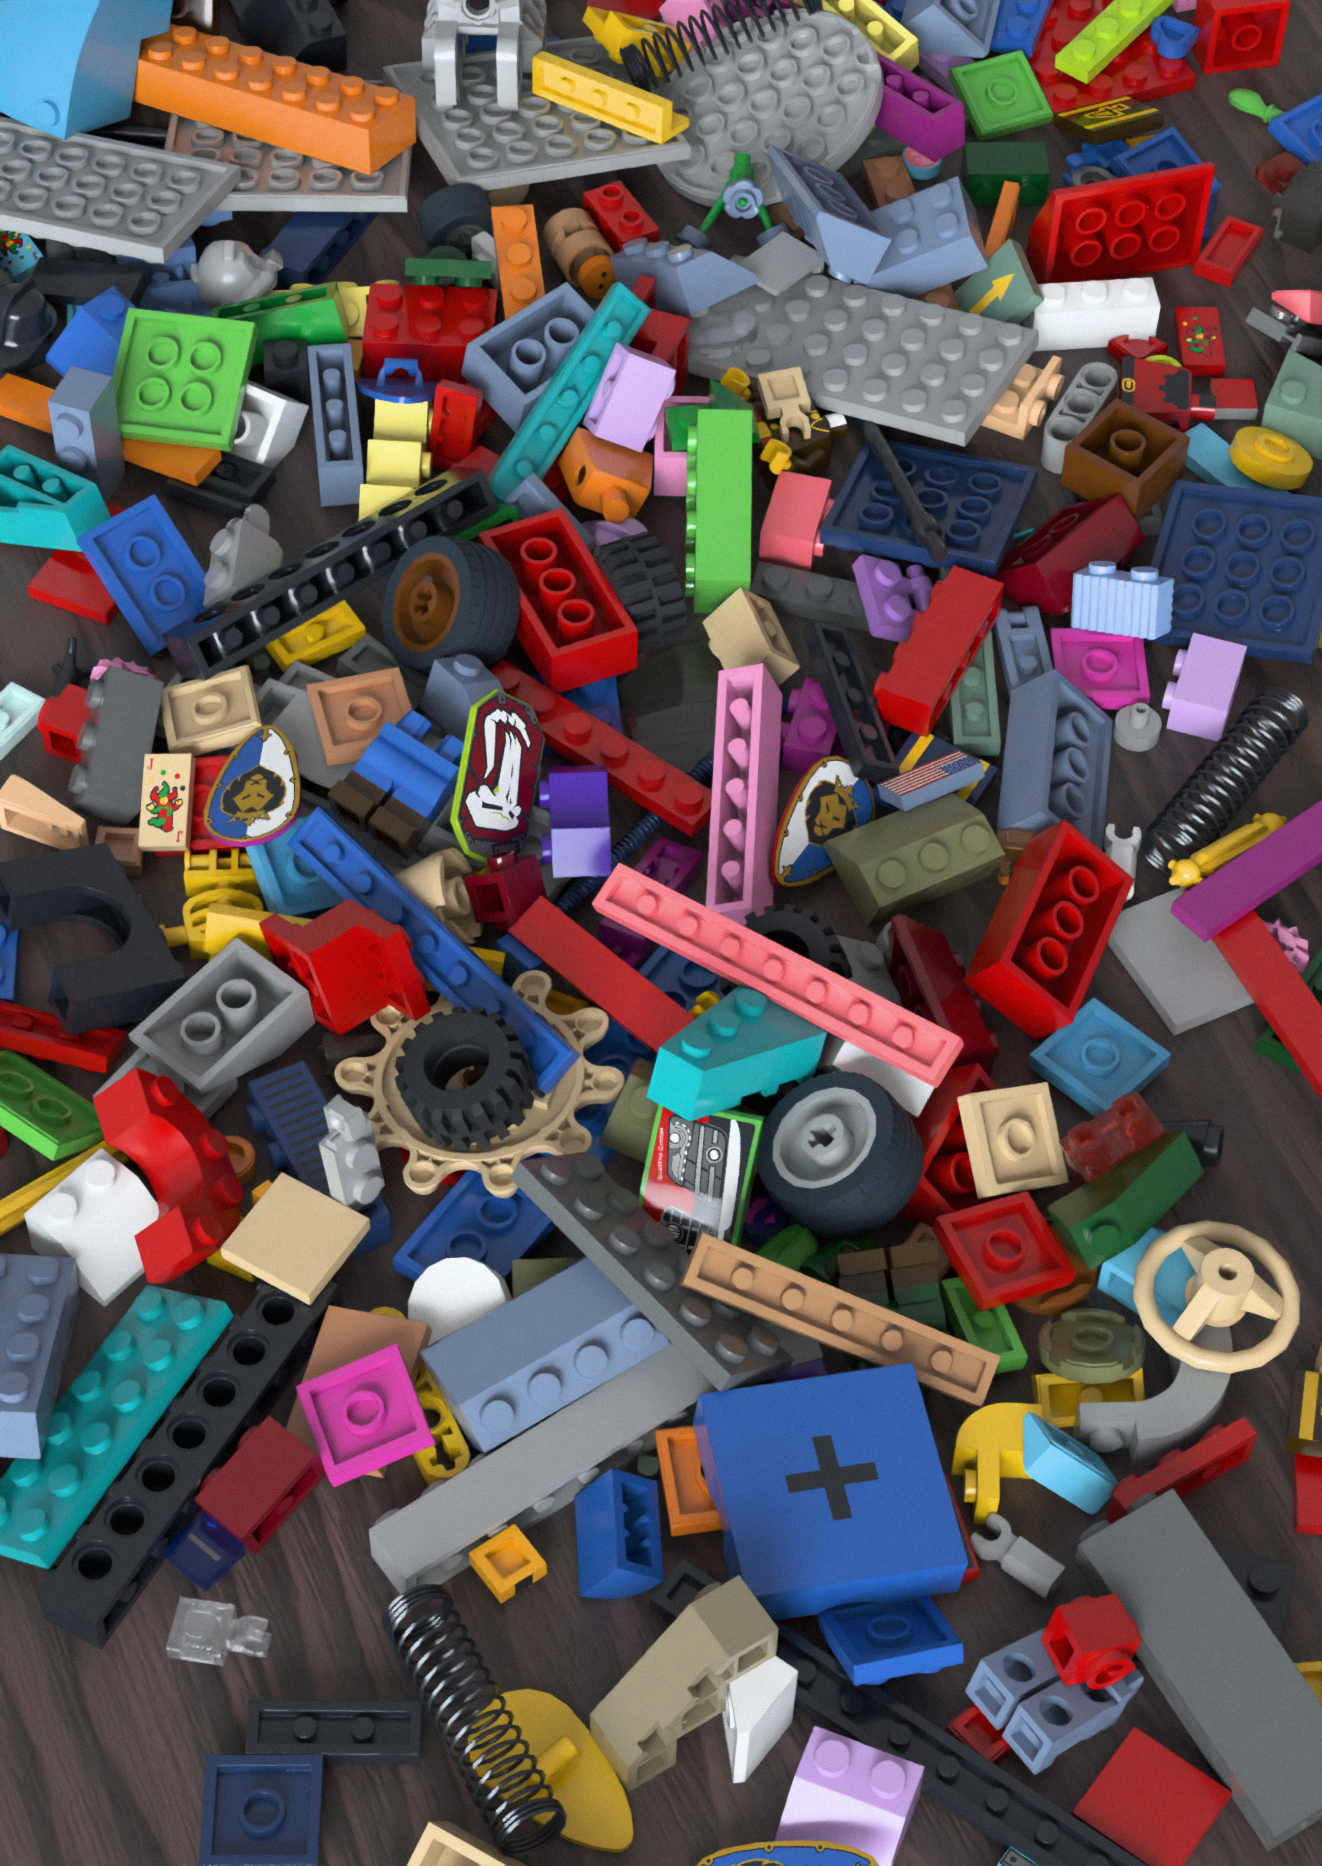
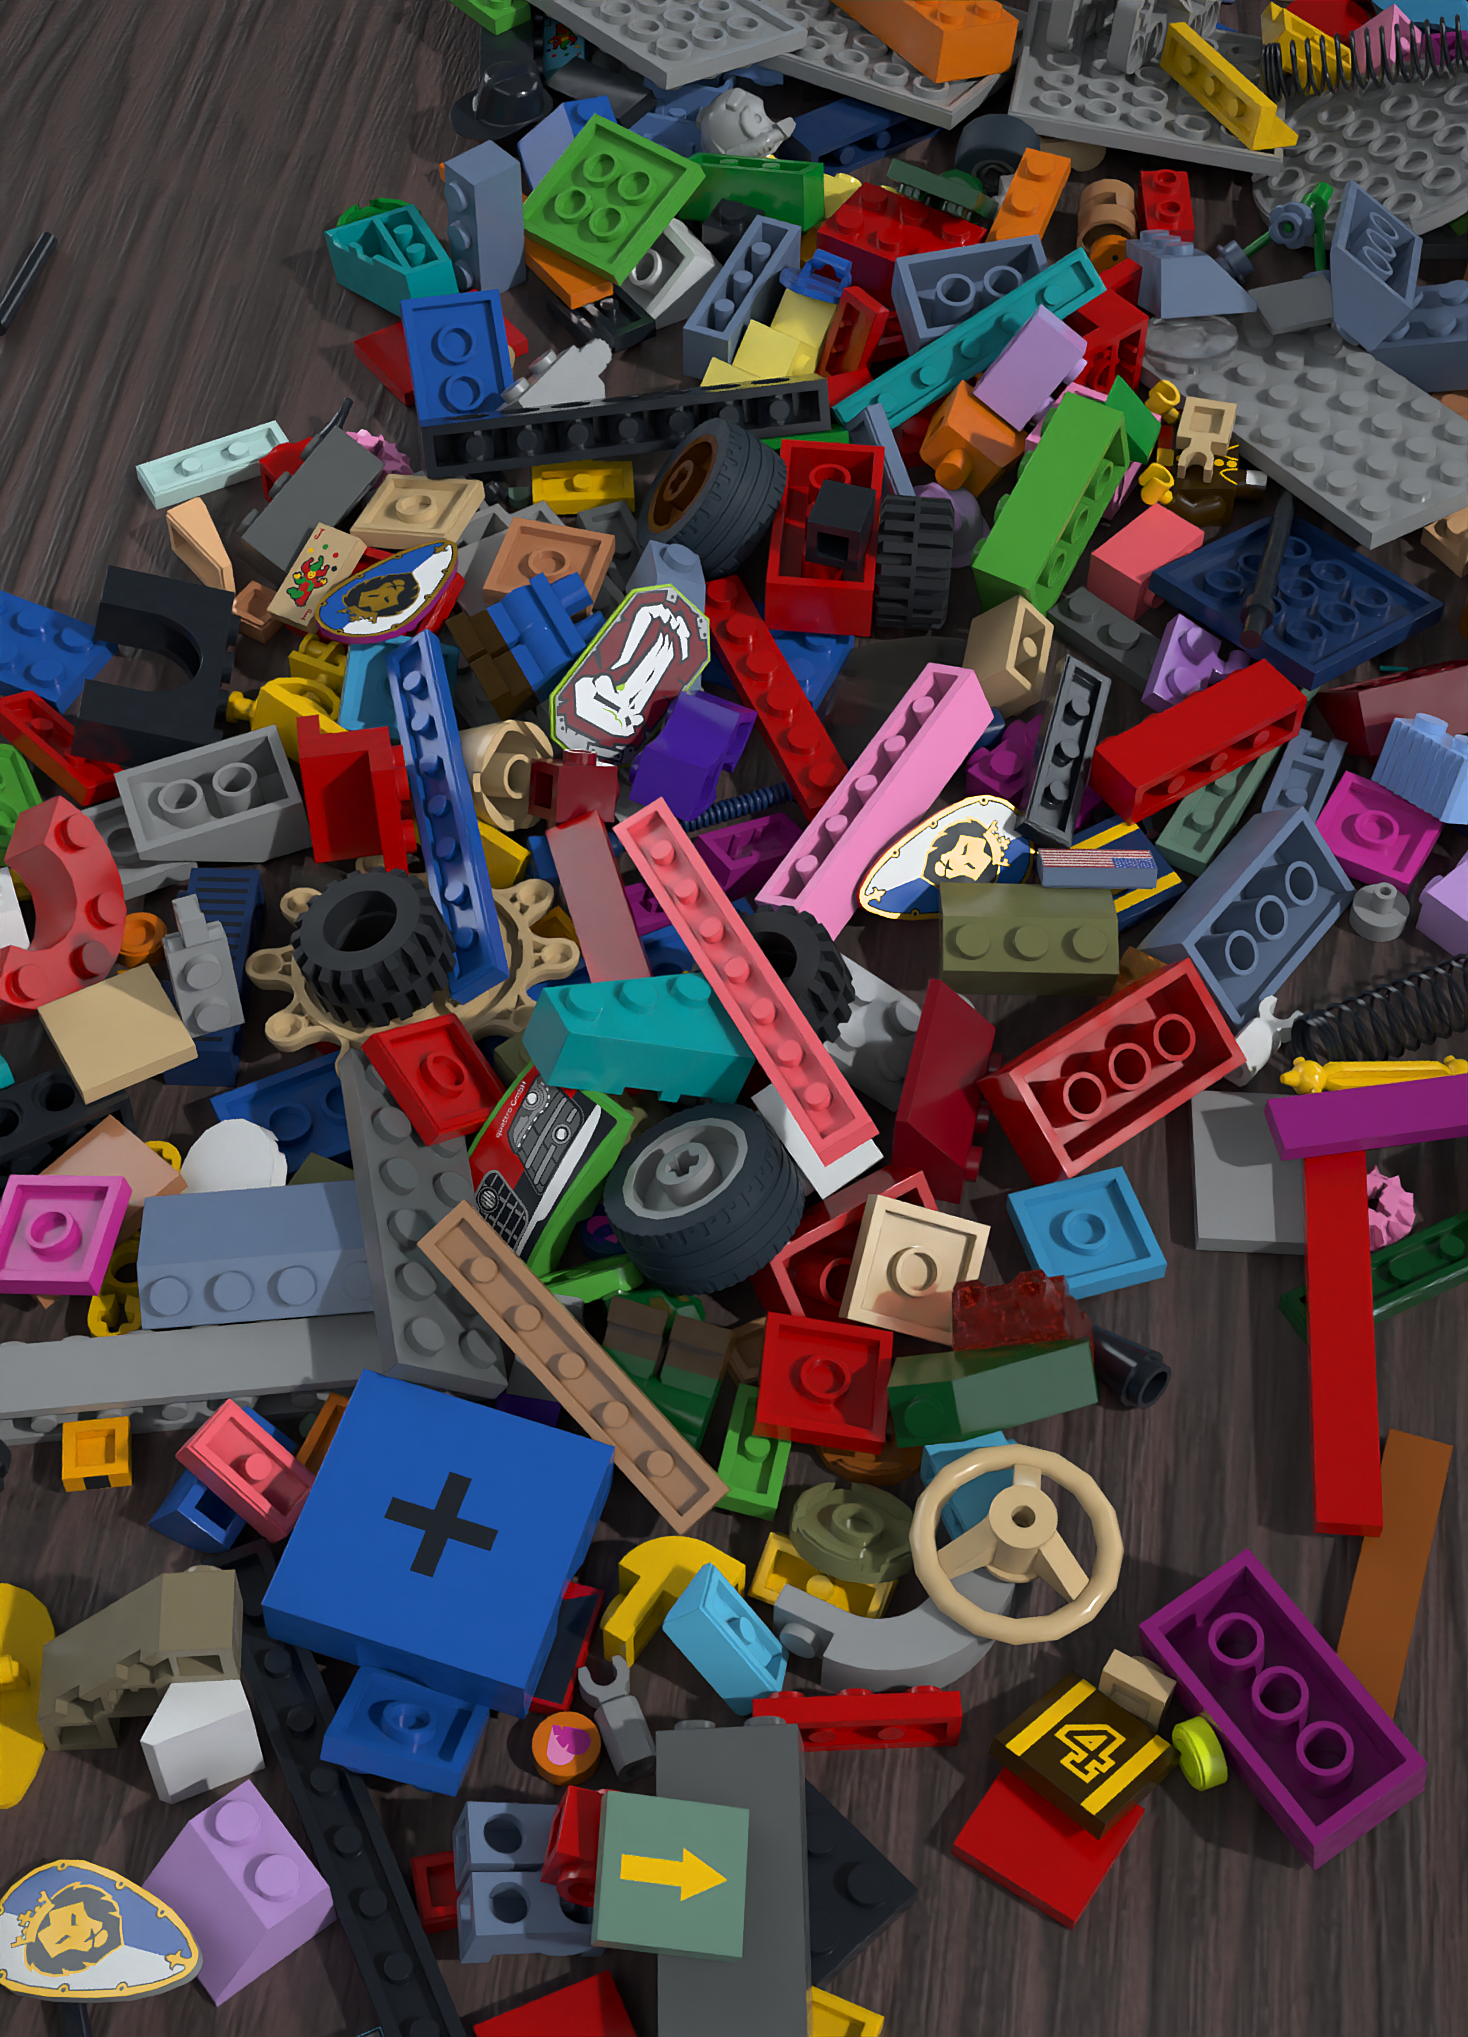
camera: 30 degrees right, 0 degrees up
(586, 587) = (840, 525): none -> black brick
(591, 1155) = (436, 1076): none -> red tile
(654, 1514) = (248, 1471): none -> coral slope
(996, 1597) = (566, 1748): none -> orange tile
(1165, 1631) = (670, 1877): none -> sand green tile

